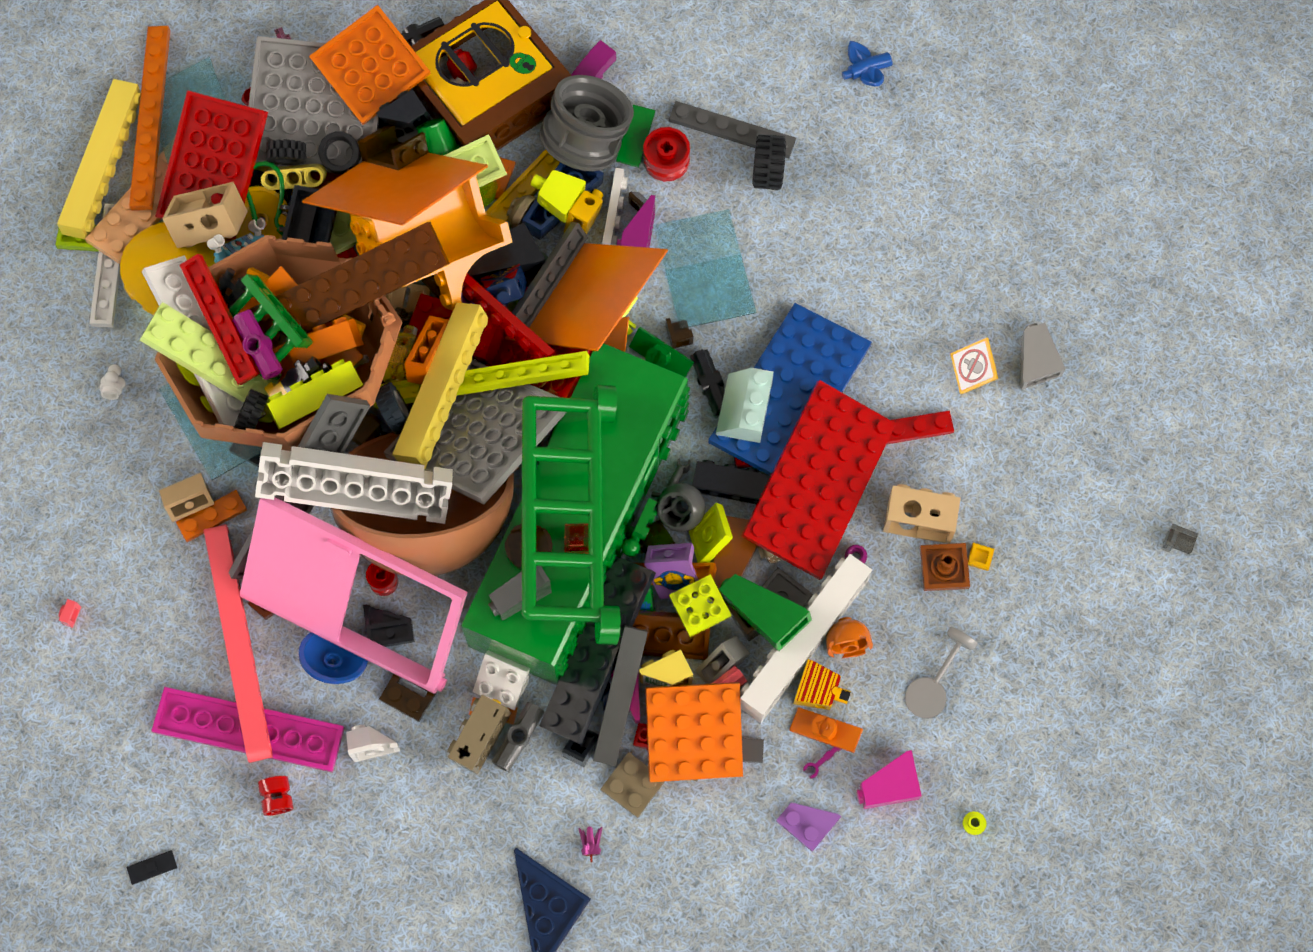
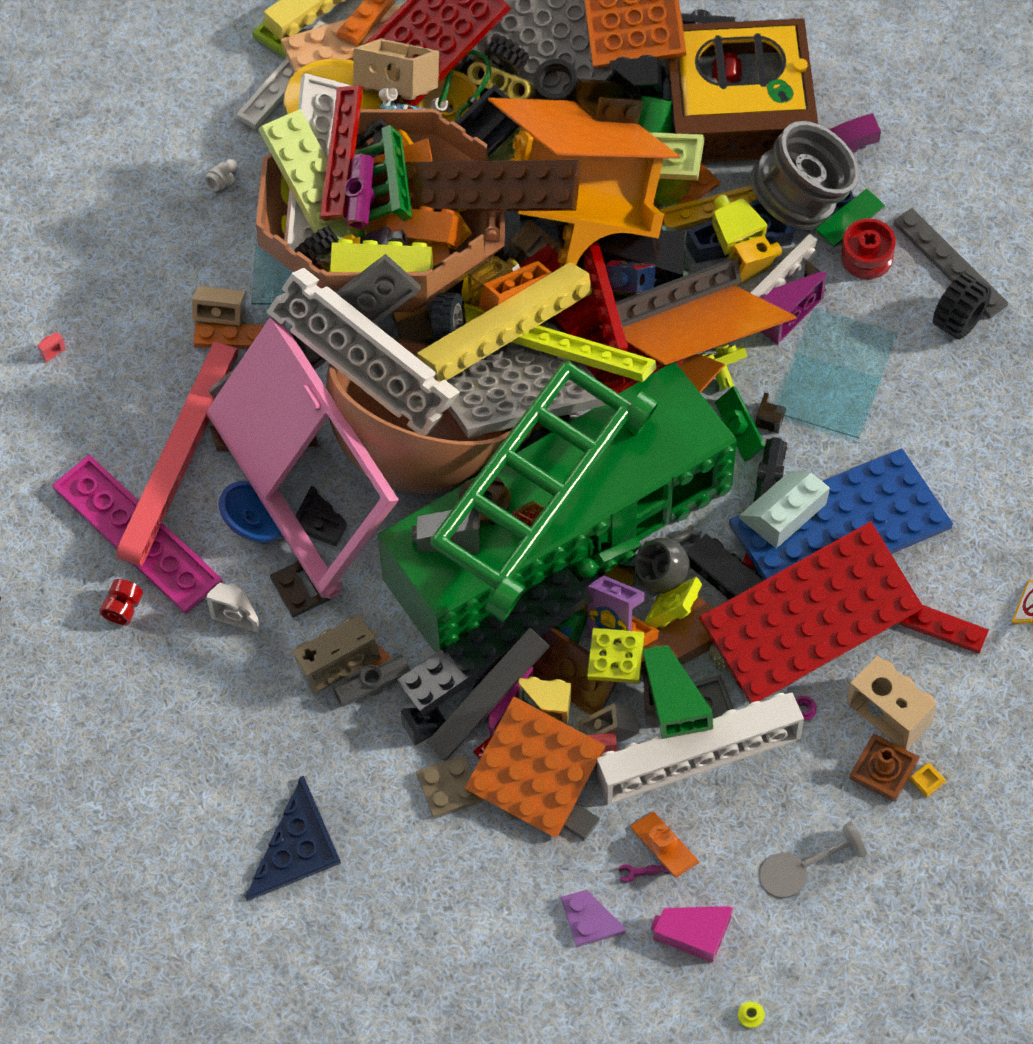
camera: 35 degrees right, 10 degrees down
(381, 581) = (342, 473): red wheel -> none
(501, 679) = (392, 621): white plate -> none
(518, 209) = (691, 218): dark tan piece -> none
(590, 843) = (369, 816): flat silver piece -> none
(820, 687) = (684, 803): torso -> none
(848, 638) = (742, 774): orange cylinder -> none

